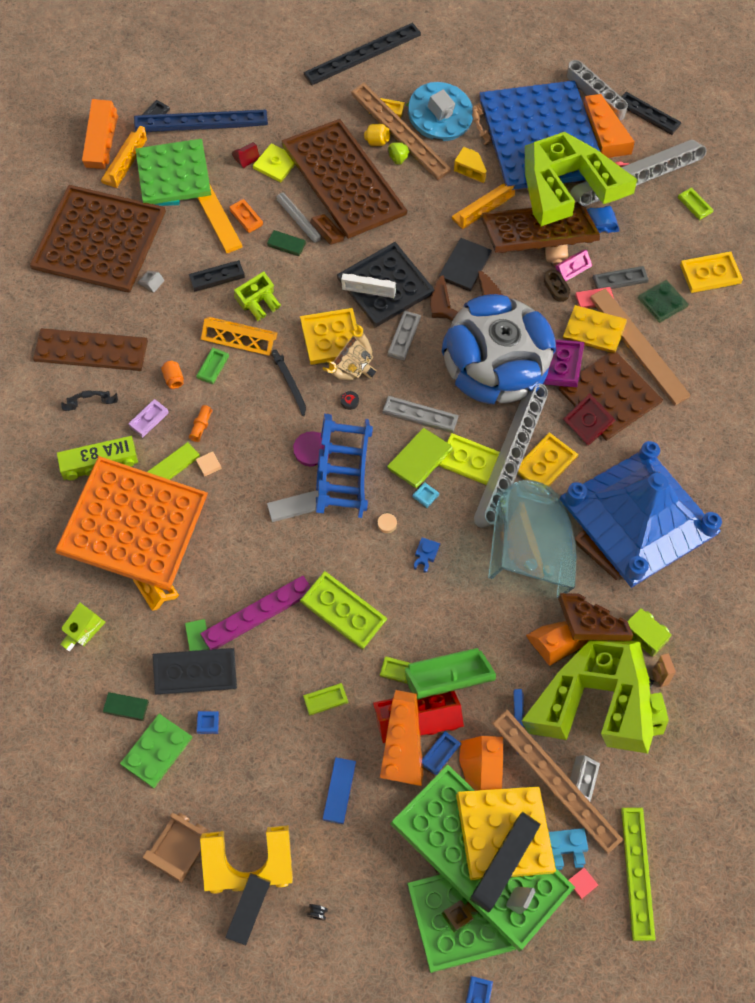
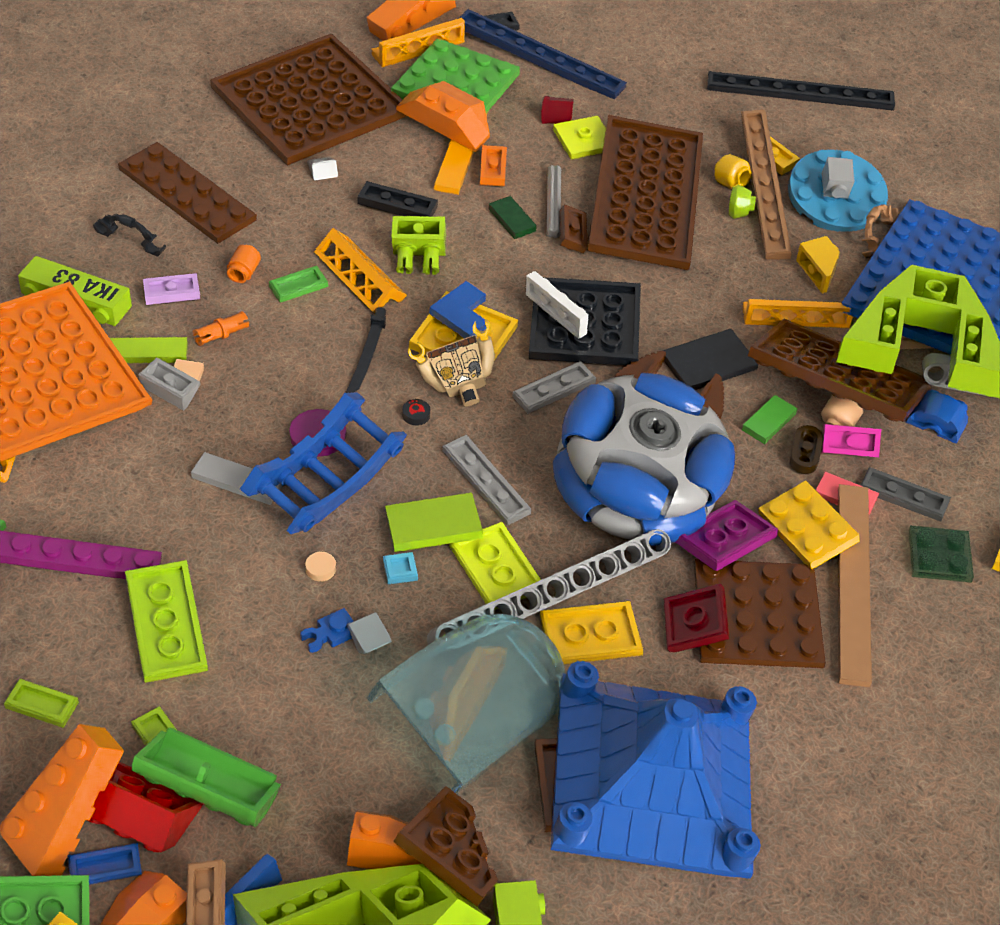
camera: 35 degrees right, 15 degrees down
(193, 197) = (448, 113): none -> orange wedge
(208, 476) = (169, 383): none -> light grey slope
(319, 327) = (457, 307): none -> blue tile
(448, 542) = (368, 633): none -> light grey slope
(523, 279) = (769, 419): none -> bright green tile

